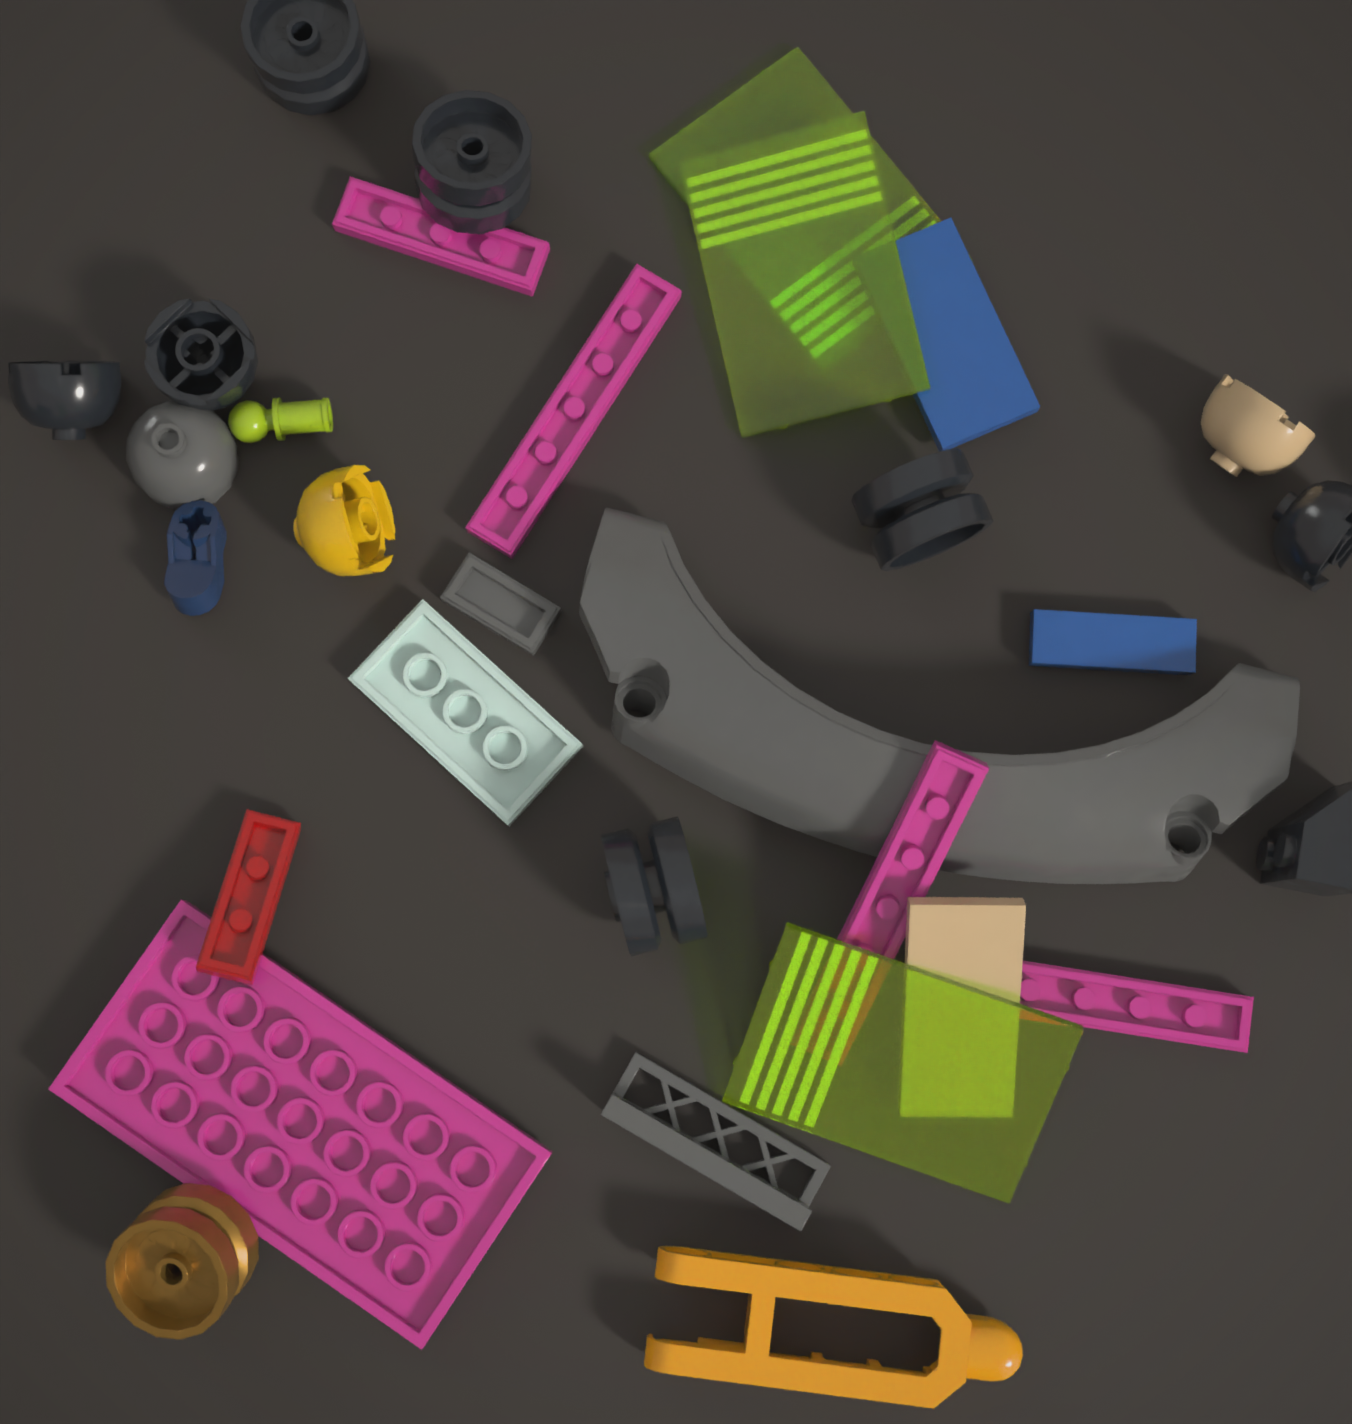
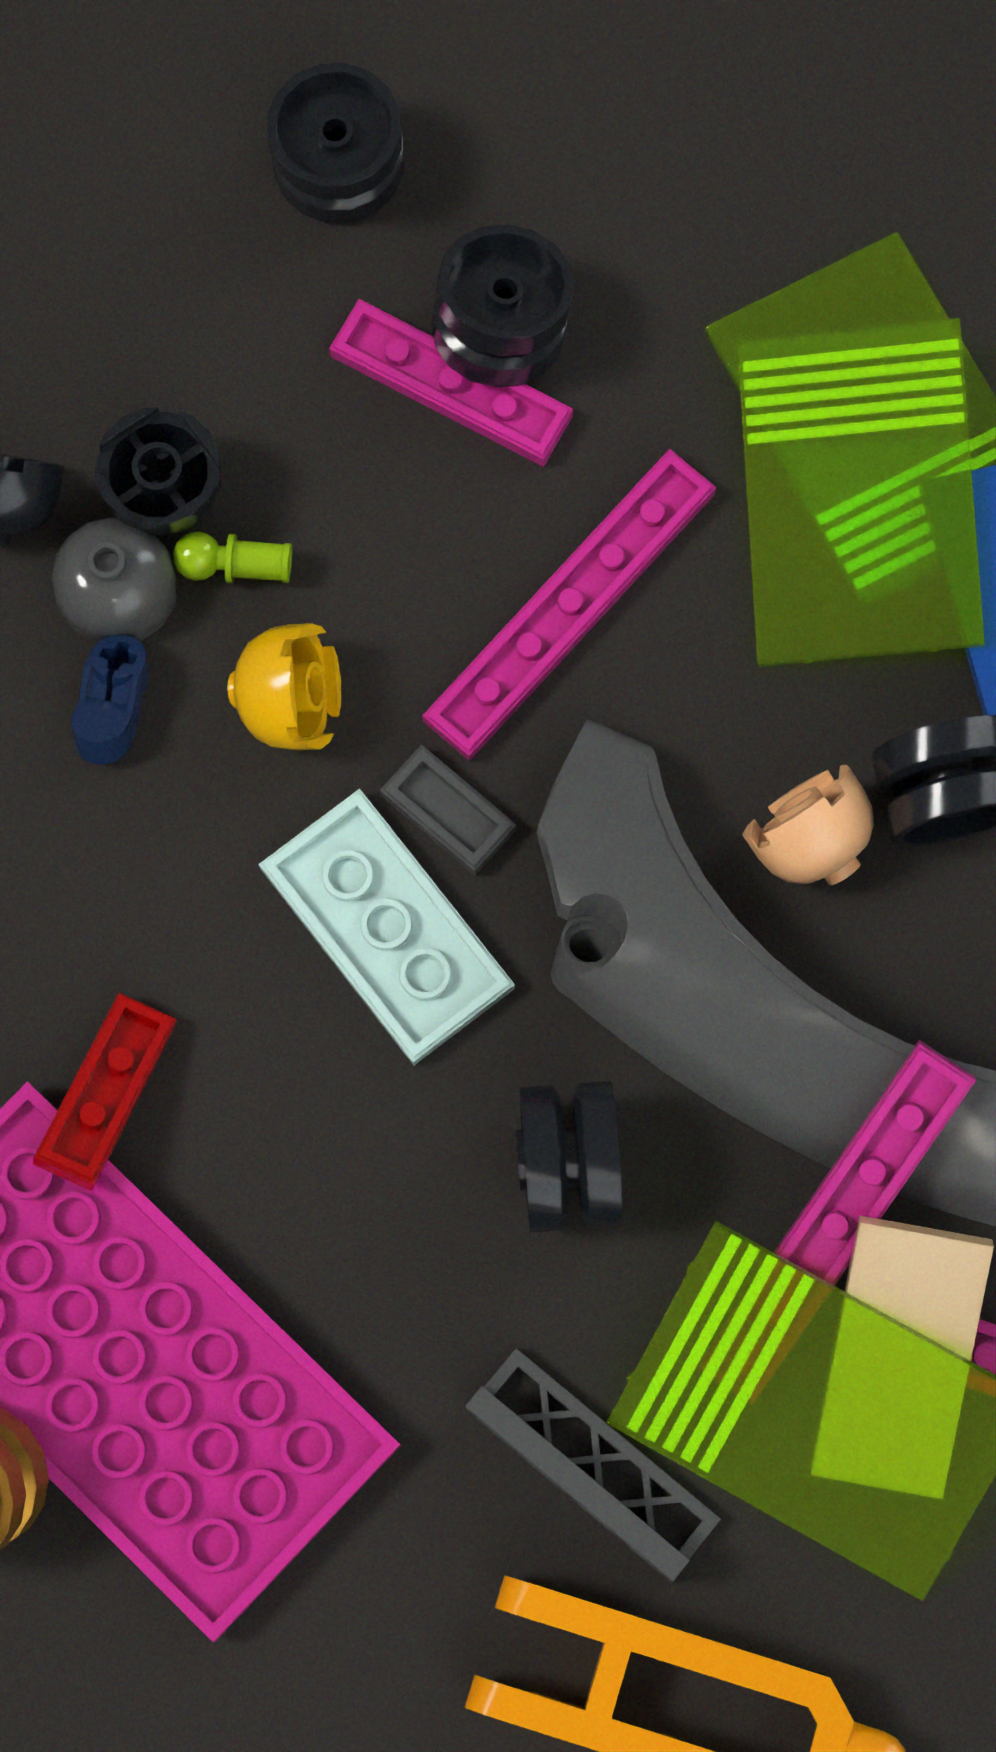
camera: 15 degrees right, 5 degrees down
(813, 570) = (815, 830): none -> light nougat cylinder

